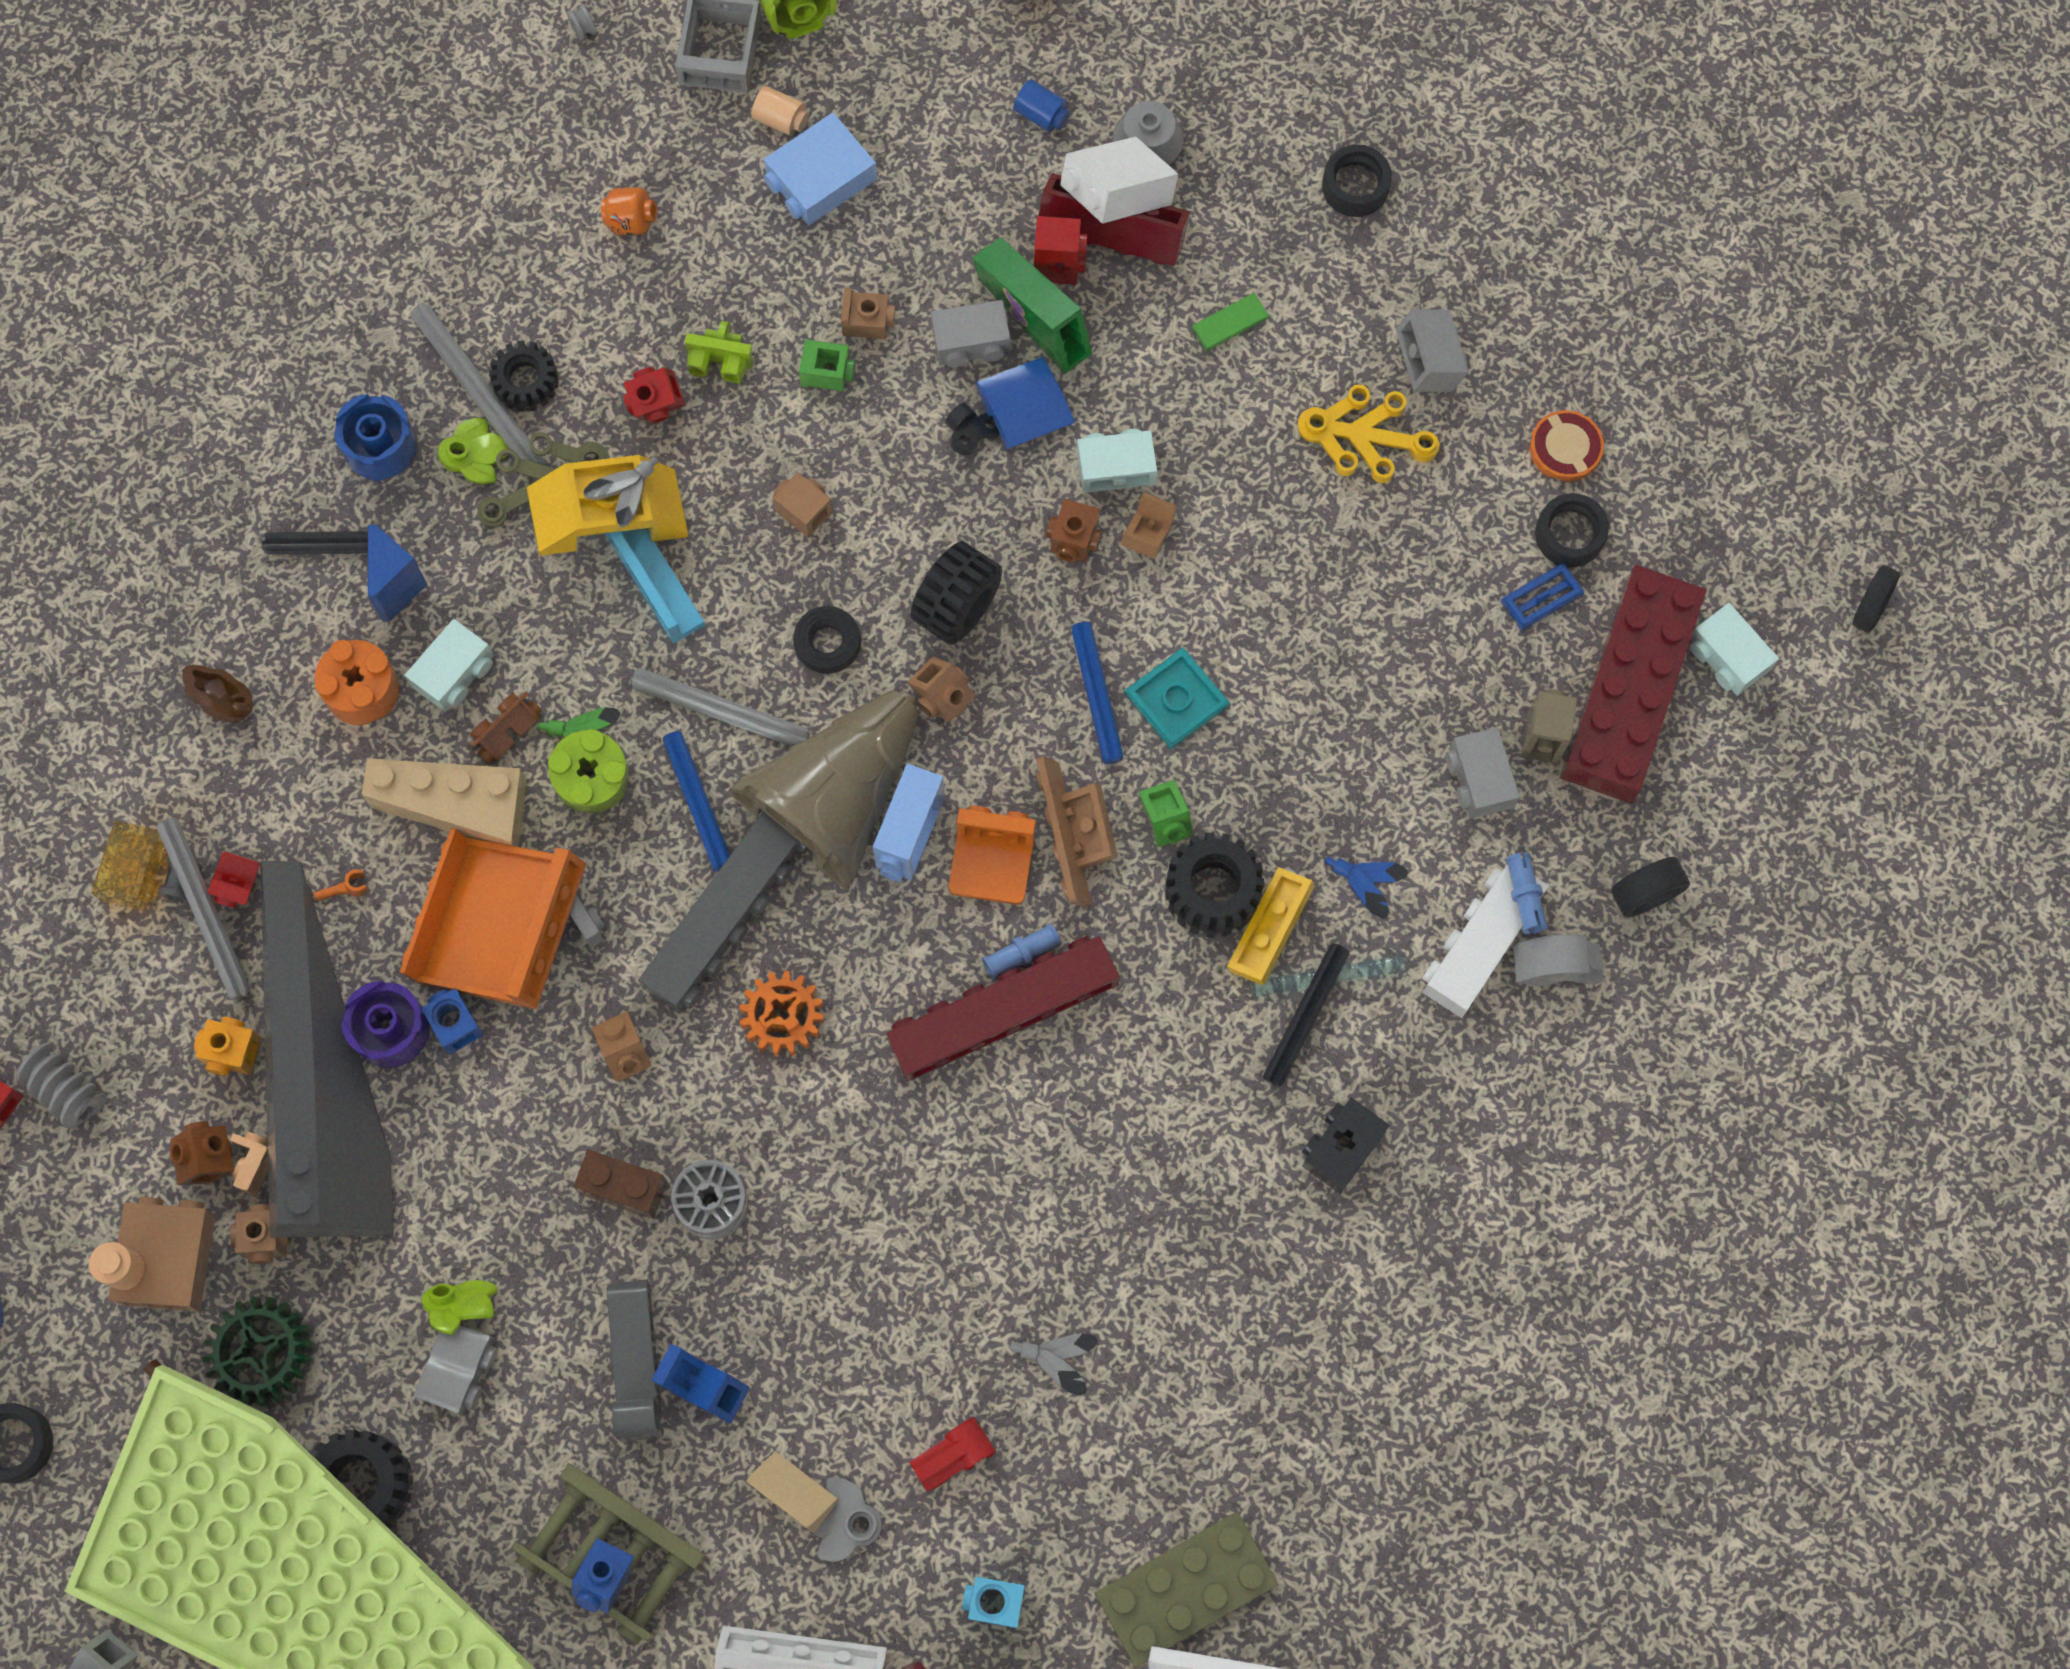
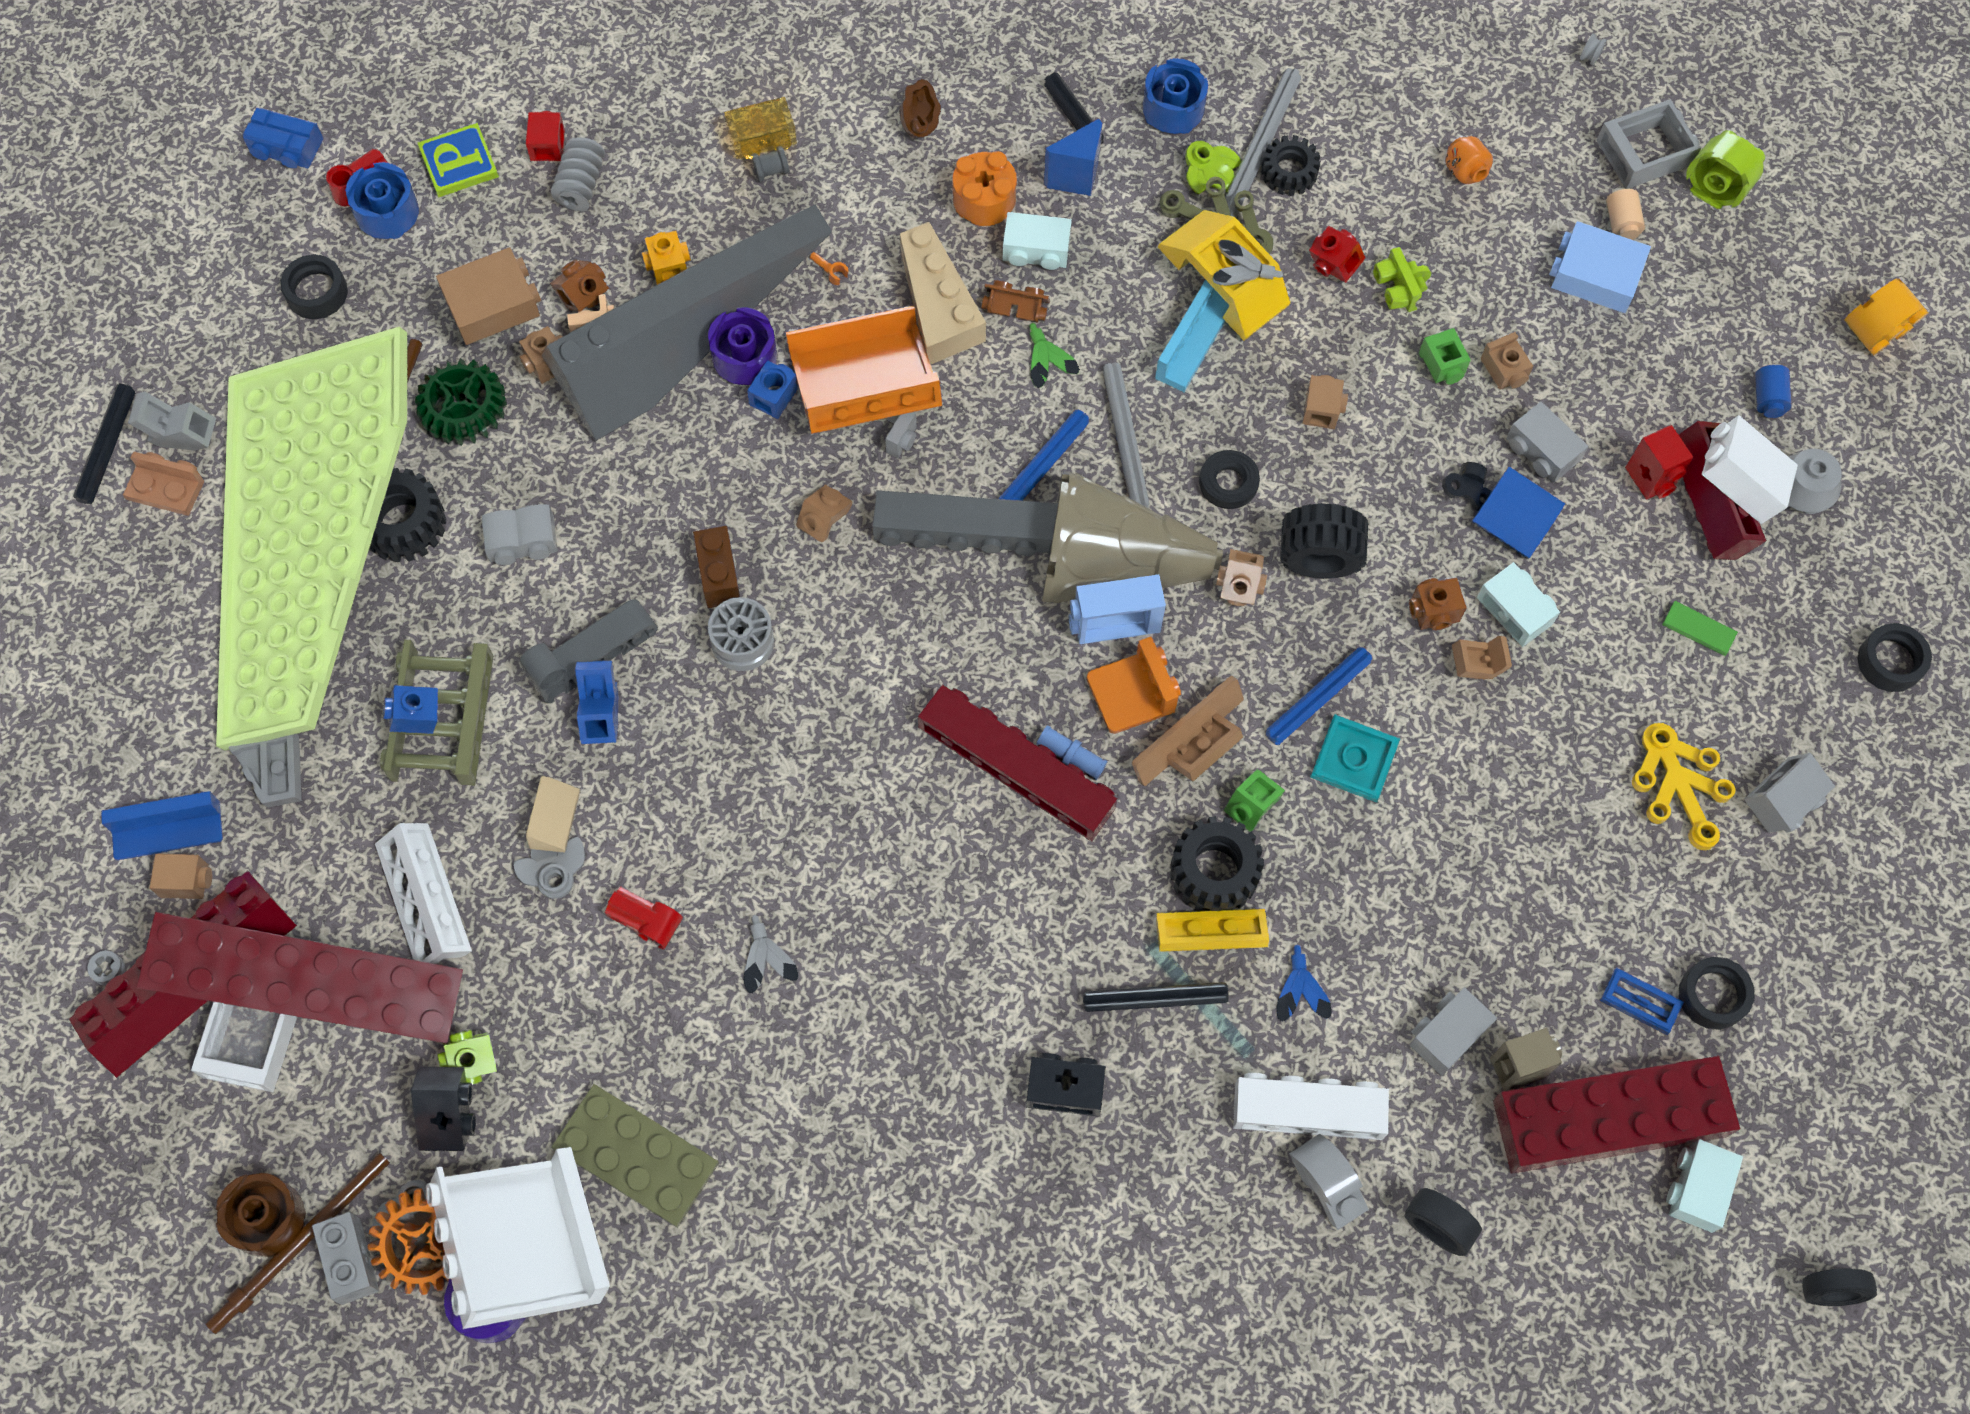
camera: 60 degrees right, 5 degrees down
(116, 1266) = (457, 262): light nougat brick -> none
(203, 908) = (756, 186): light grey axle -> none
(233, 879) = (790, 195): red bracket -> none
(451, 1304) = (567, 508): lime plate -> none
(592, 750) = (1030, 367): lime brick -> none
(769, 1023) = (905, 595): orange gear -> none
(1013, 1600) = (556, 1021): medium azure brick -> none
(1035, 304) = (1603, 474): green slope -> none
(1526, 893) = (1366, 1115): medium blue pin -> none
(1566, 445) = (1789, 950): tile -> none

